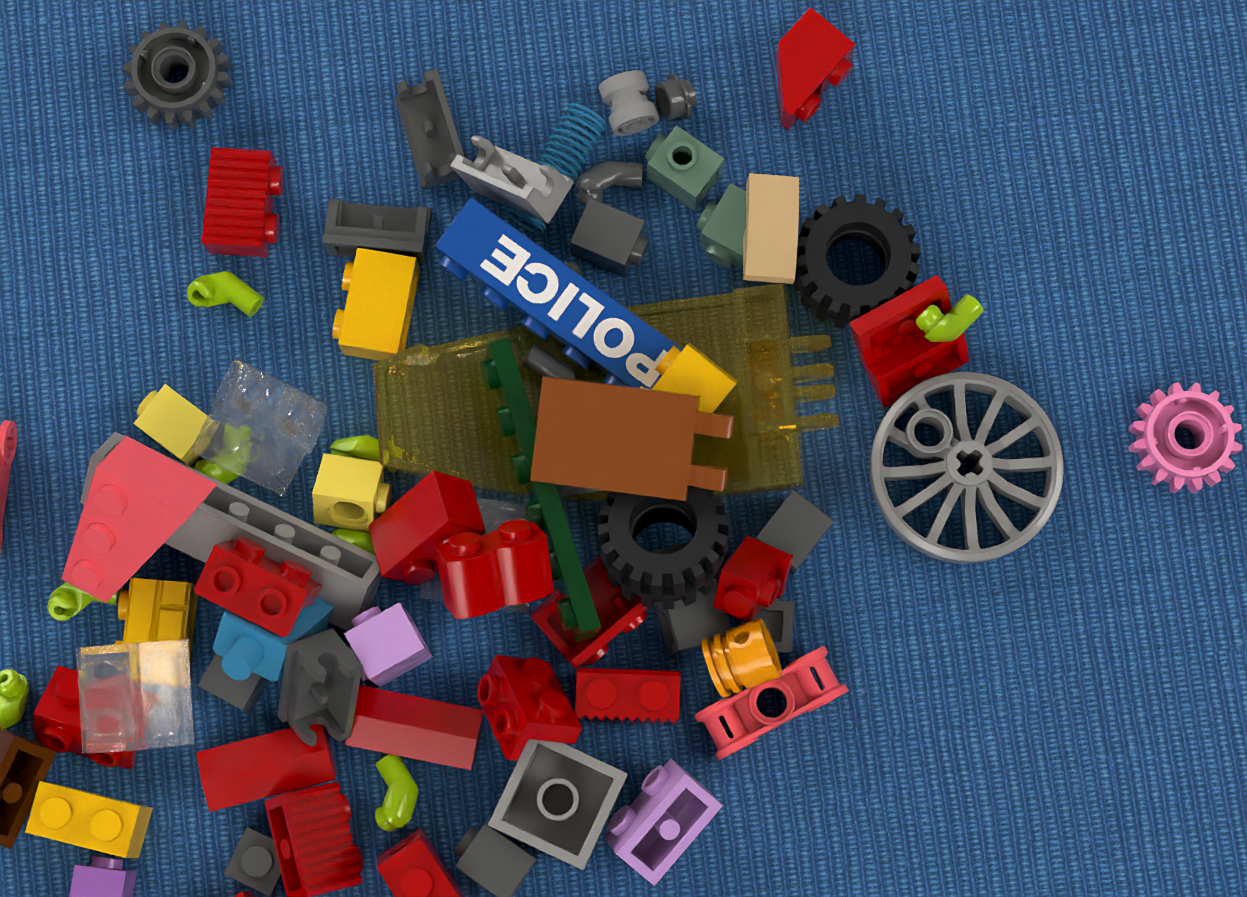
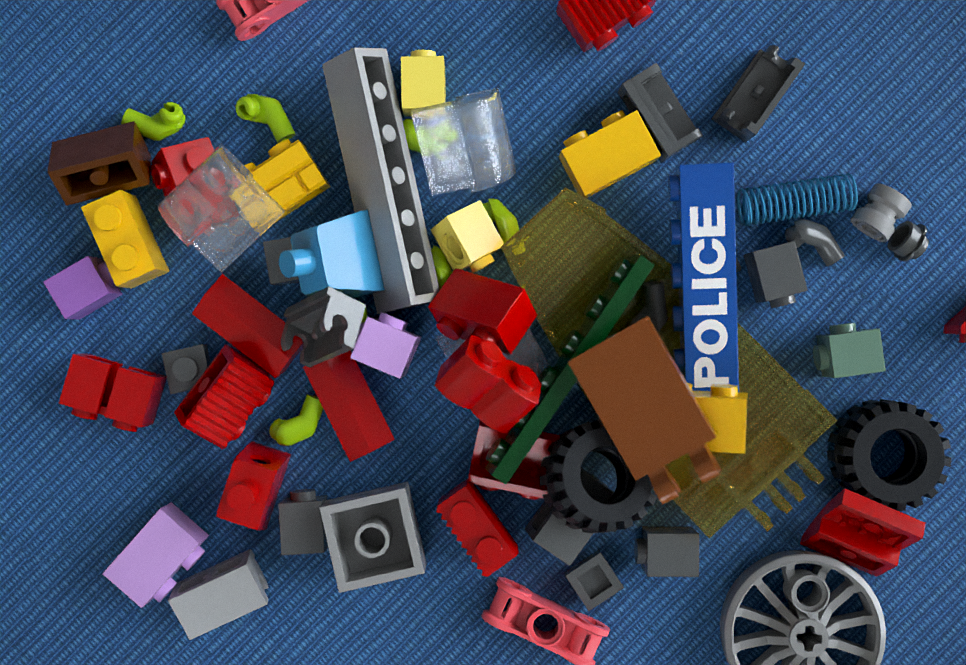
camera: 50 degrees right, 10 degrees up
(129, 515) = (336, 108): coral wedge -> none
(222, 289) = (539, 41): lime arm -> none
(257, 586) = (354, 232): red bracket -> none
(513, 180) = (767, 180): light grey hinge -> none
(526, 703) = (418, 468): red bracket -> none
(661, 821) = (413, 614): lavender brick -> none
(683, 166) = (865, 285): sand green brick -> none
(742, 658) = (559, 589): light orange piece -> none
(752, 579) = (617, 554): red brick -> none
(771, 228) = (871, 385): tan slope -> none
(952, 324) = (893, 554): lime arm -> none

